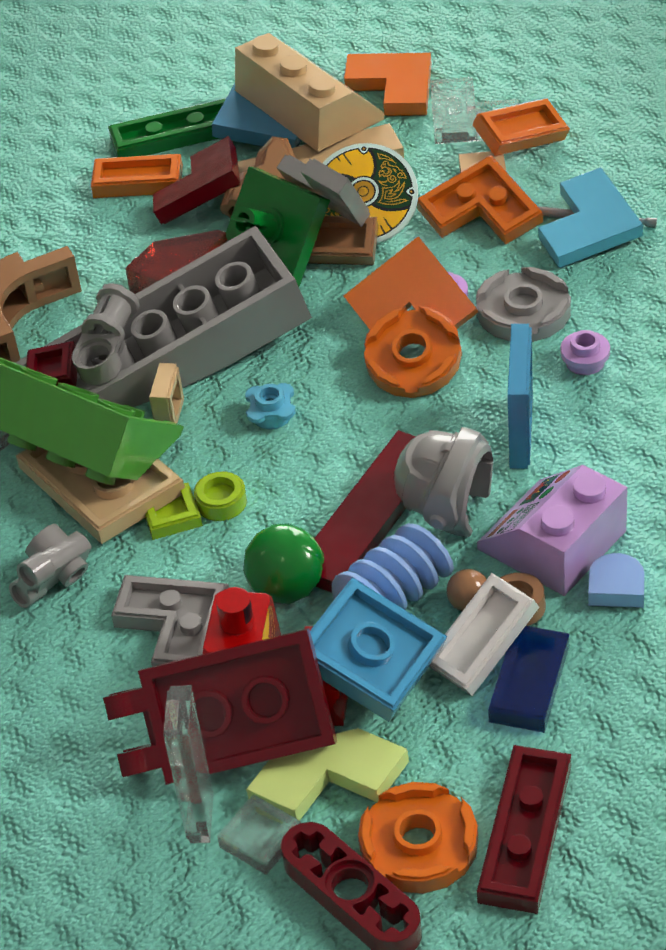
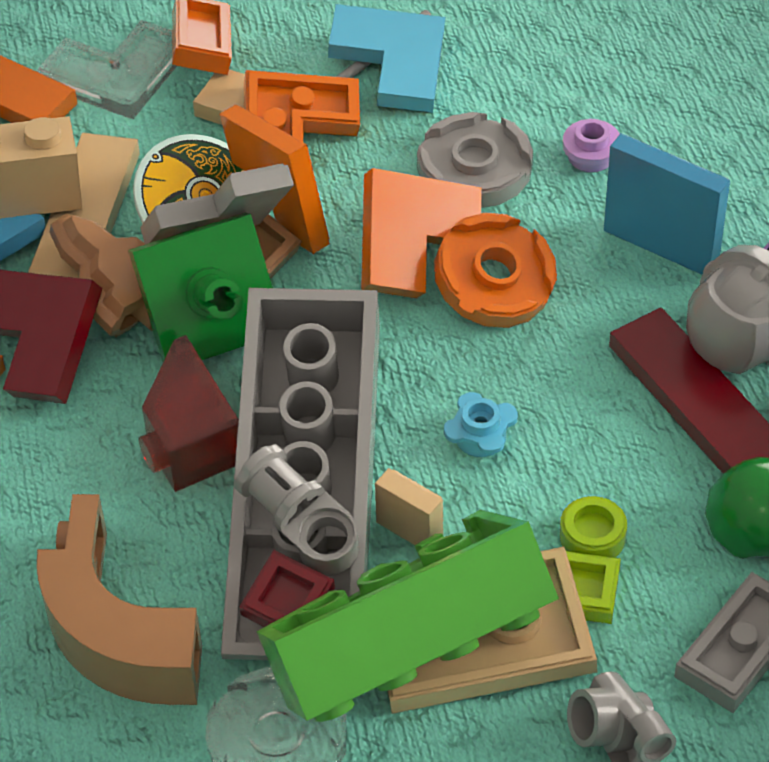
camera: 65 degrees left, 5 degrees up
(388, 198) = (259, 144): none -> orange tile

